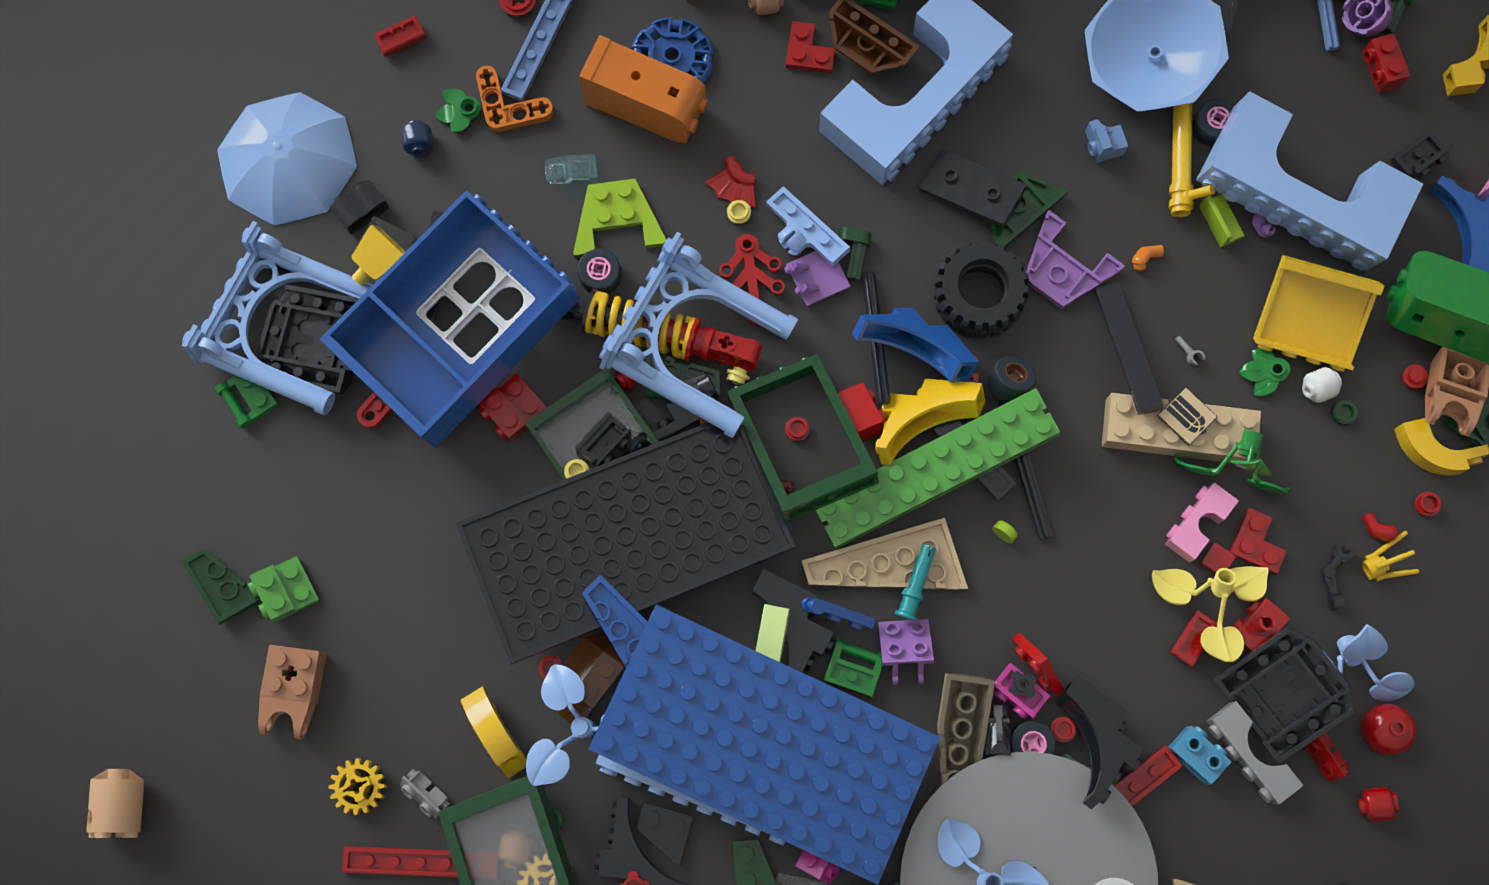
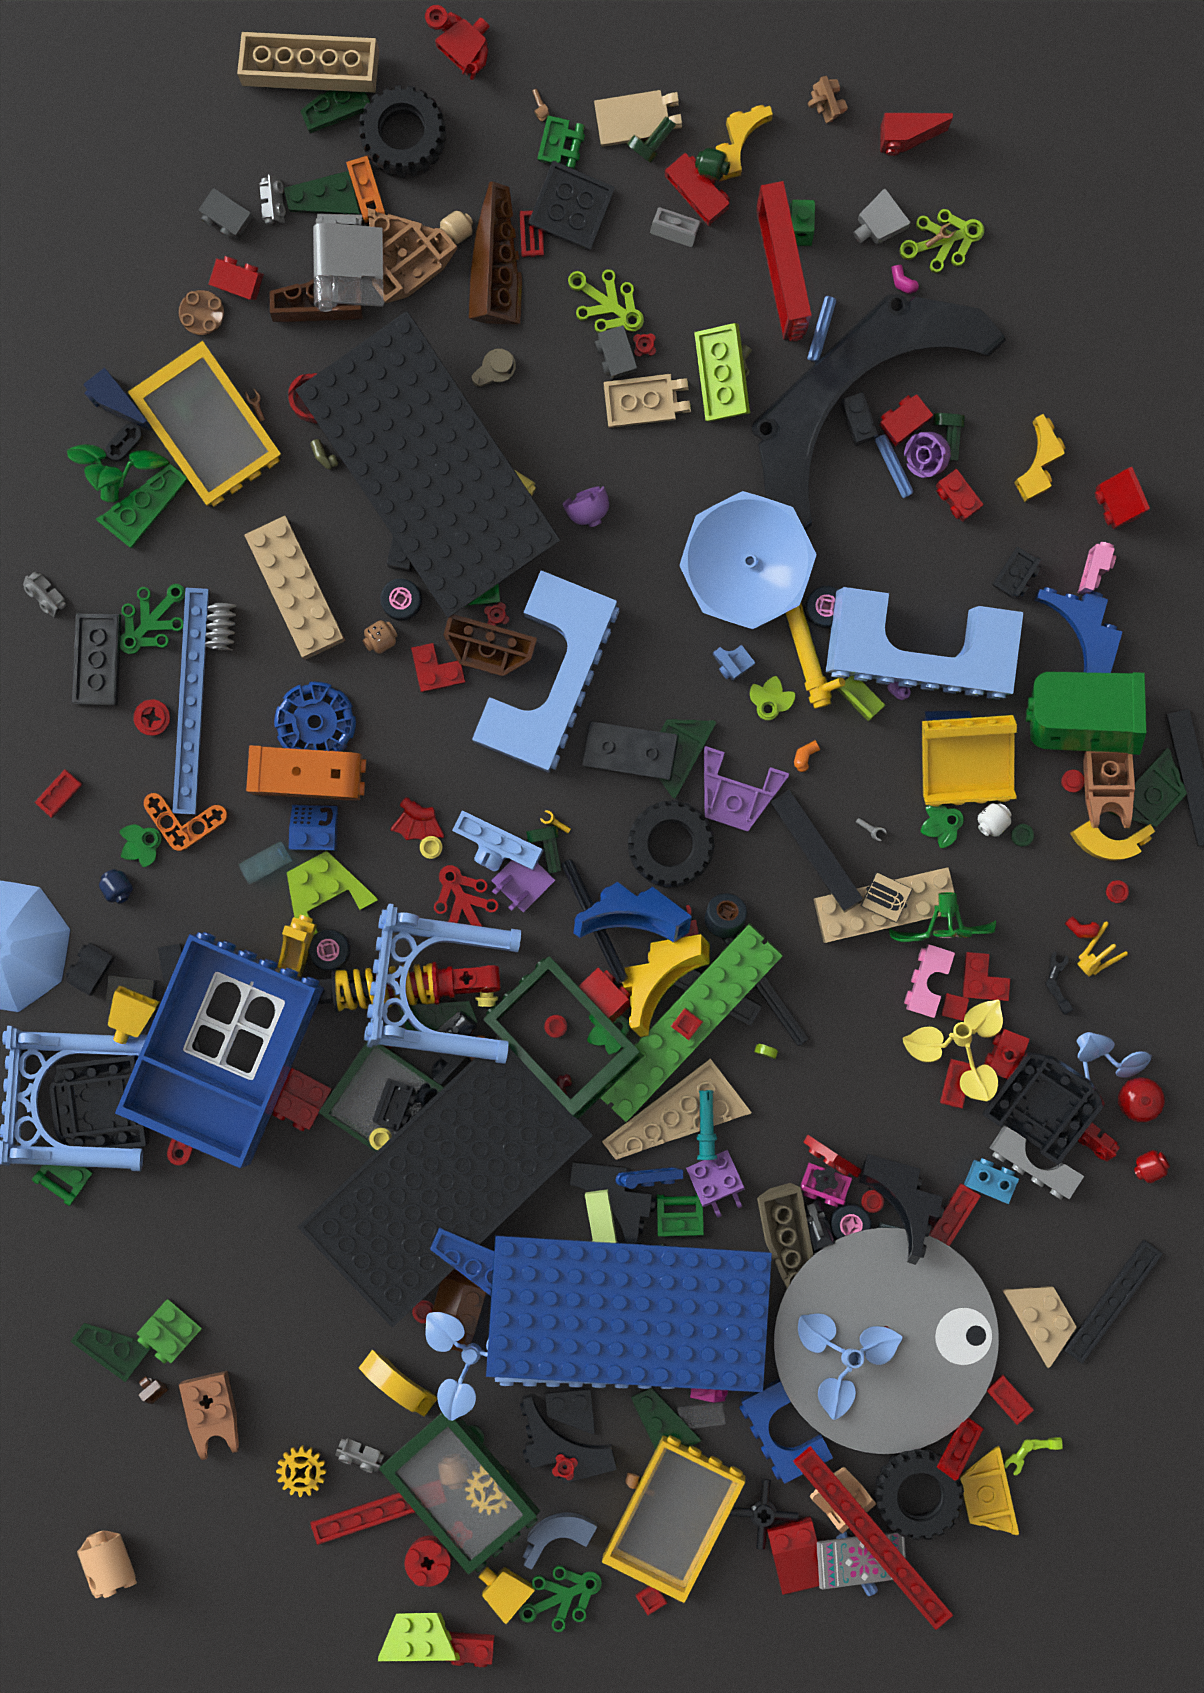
camera: 20 degrees left, 10 degrees up
(241, 643) = (152, 1390): none -> reddish brown tile
(571, 242) = (296, 943): none -> yellow arch
(630, 154) = (313, 828): none -> blue slope
(843, 453) = (601, 1036): none -> green plate
(869, 228) = (555, 822): none -> yellow hand
(888, 14) = (500, 609): none -> red plate
(935, 465) = (686, 1023): none -> red tile
(1132, 189) = (771, 695): none -> lime plate

